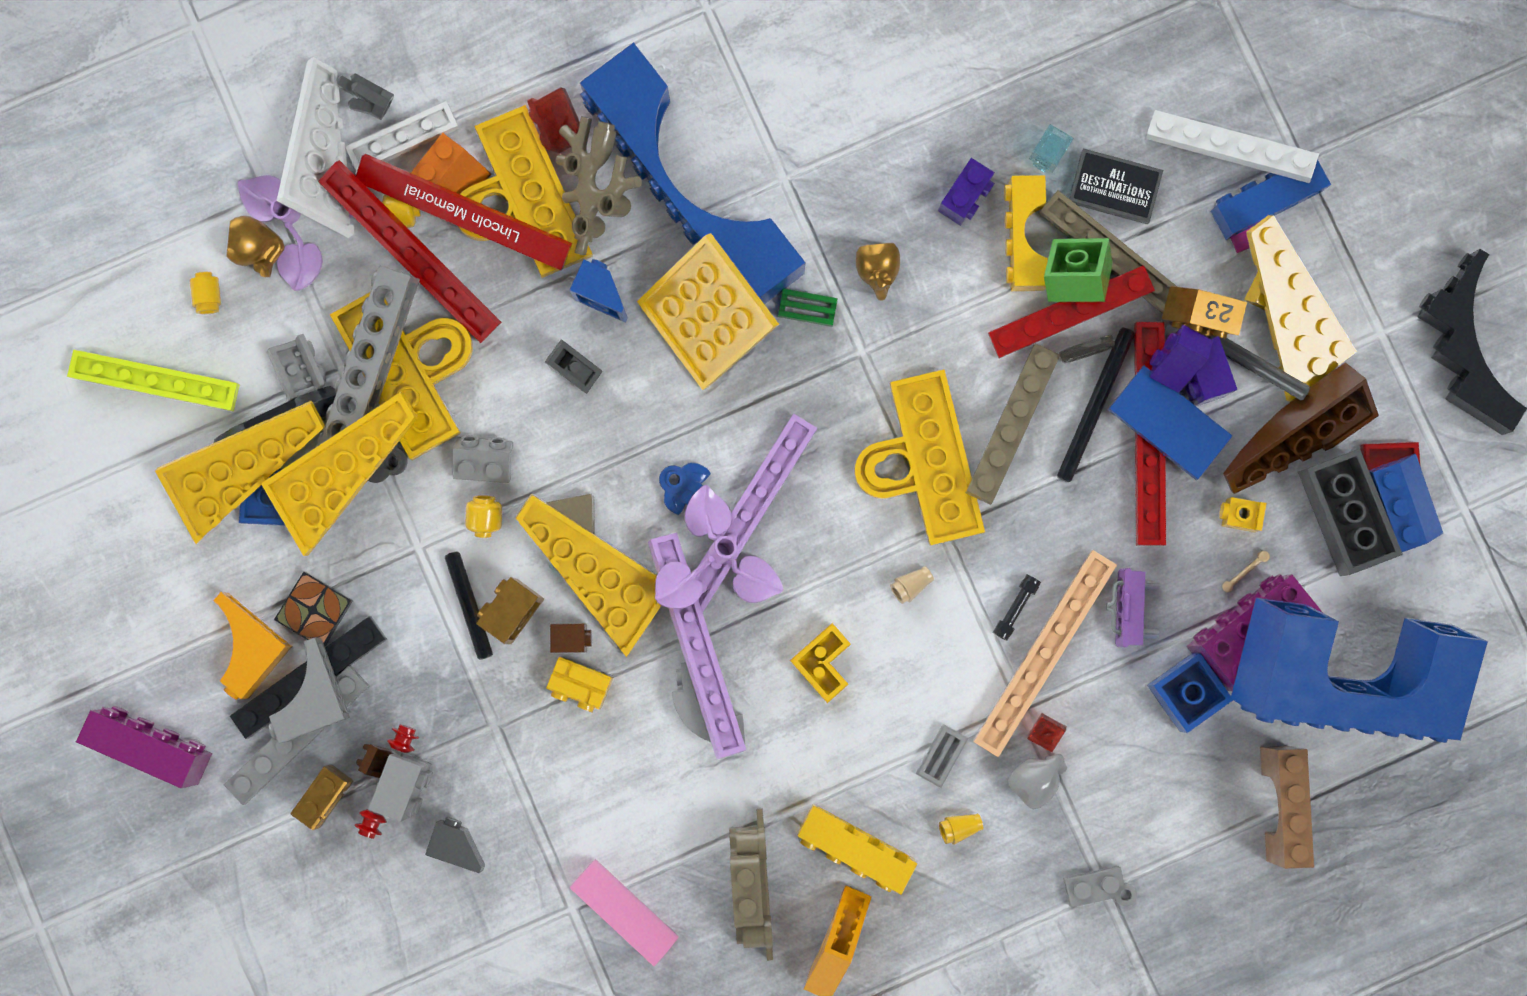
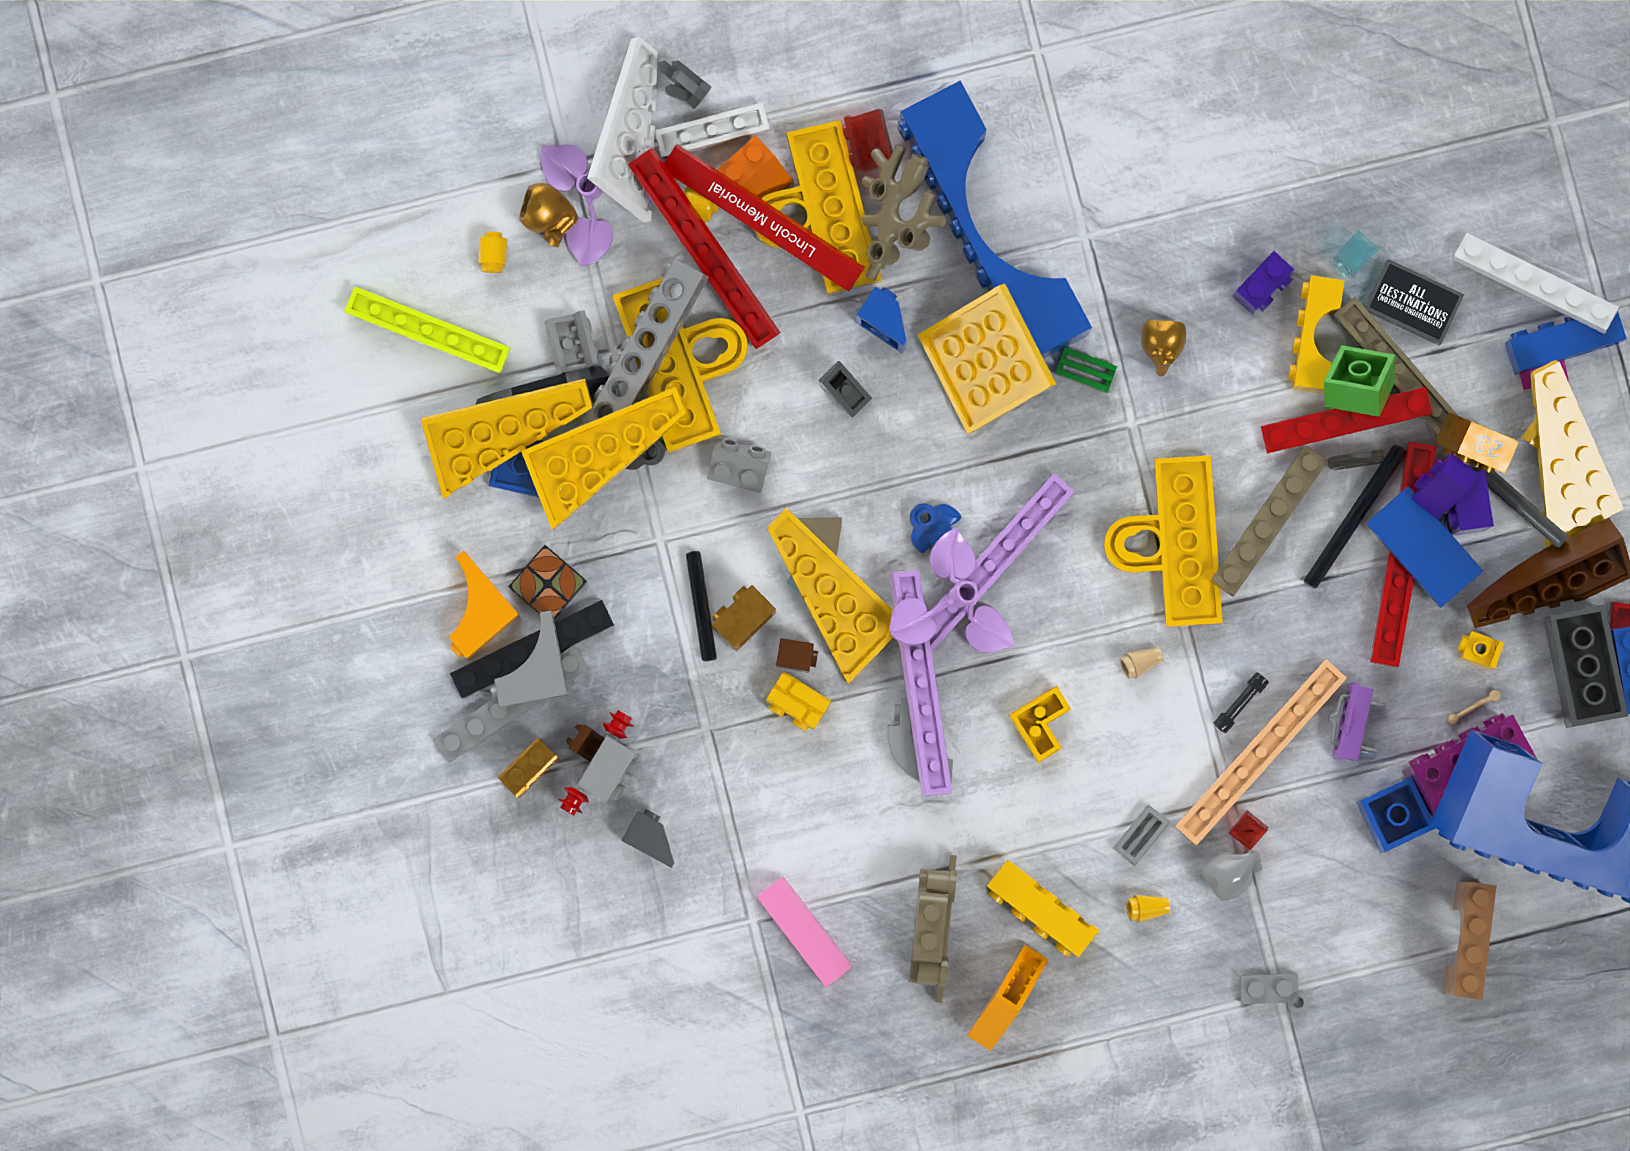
camera: 10 degrees right, 0 degrees up
(144, 746) = (365, 688): magenta brick -> none
(483, 516) = (731, 520): yellow head -> none

